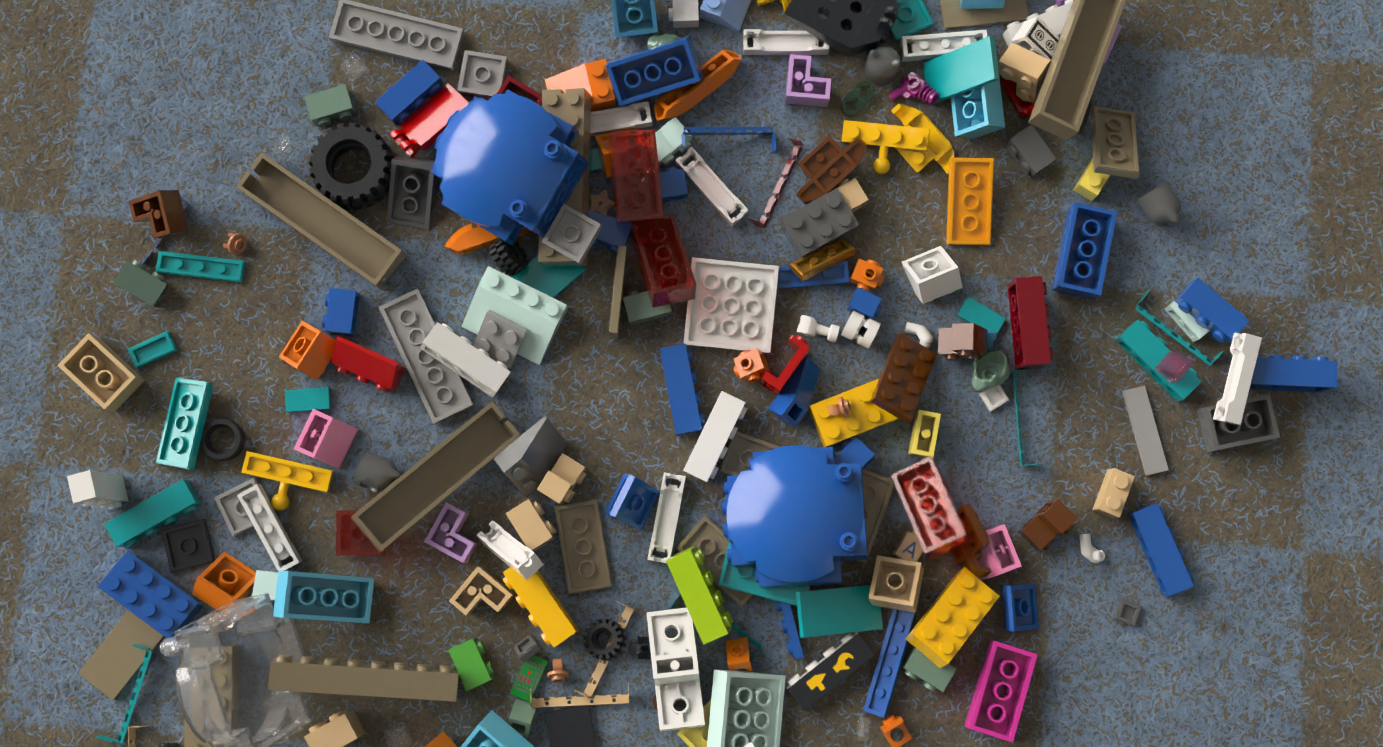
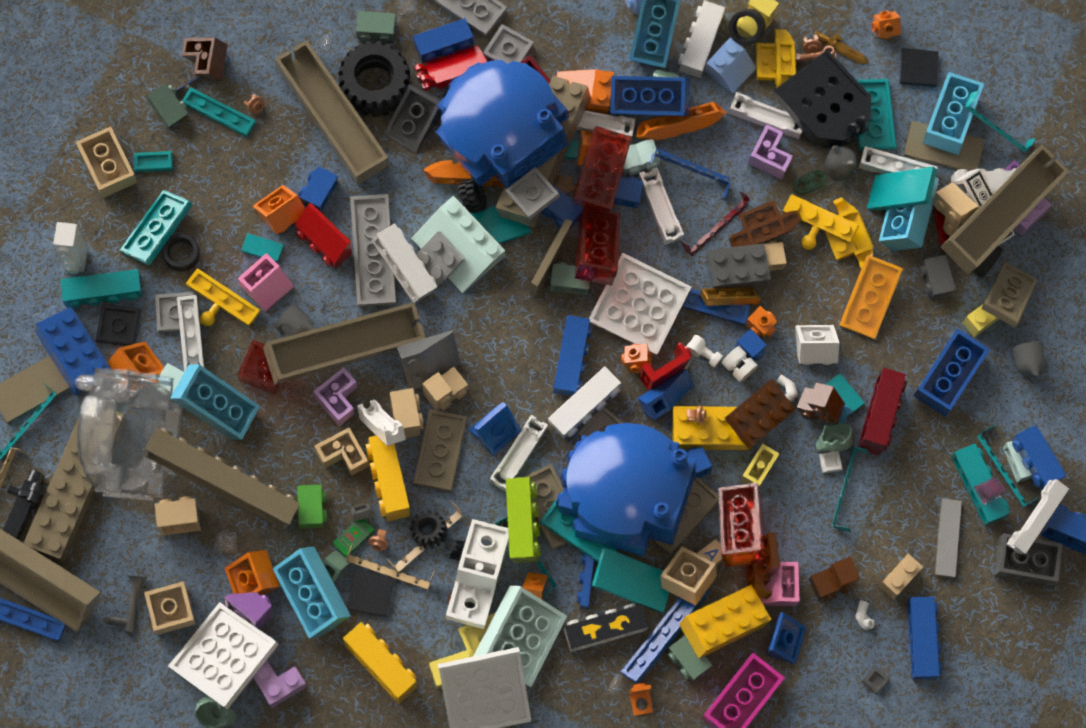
camera: 15 degrees right, 10 degrees down
(915, 87) = (861, 191): magenta piece -> none

